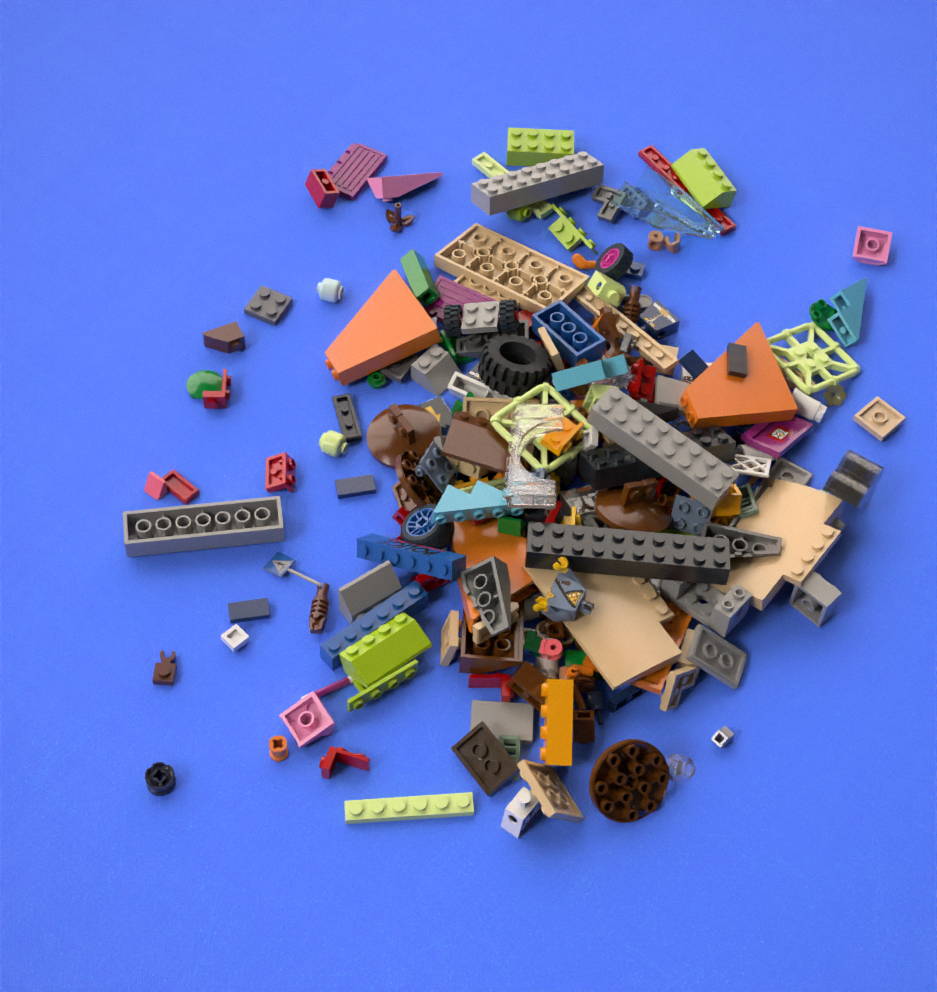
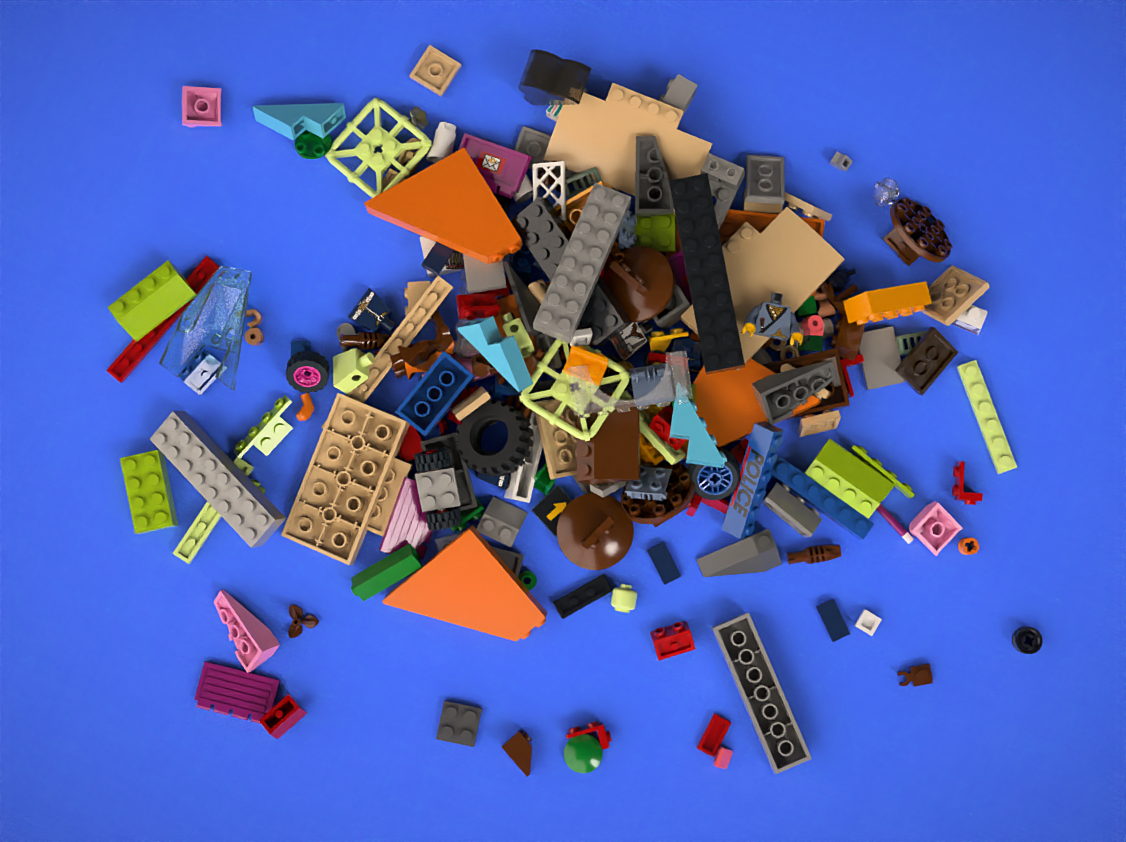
camera: 100 degrees left, 30 degrees up
(280, 564) = (774, 607): piece -> none
(330, 290) = (424, 663): light aqua head -> none
(339, 553) = (745, 556): none -> dark grey wedge
(578, 670) = (823, 300): orange arm -> none
(583, 726) = (870, 281): reddish brown brick -> none
(605, 195) = (209, 393): dark grey plate -> none
(628, 343) = (429, 329): dark grey plate -> none
(736, 360) = (430, 214): black tile -> none

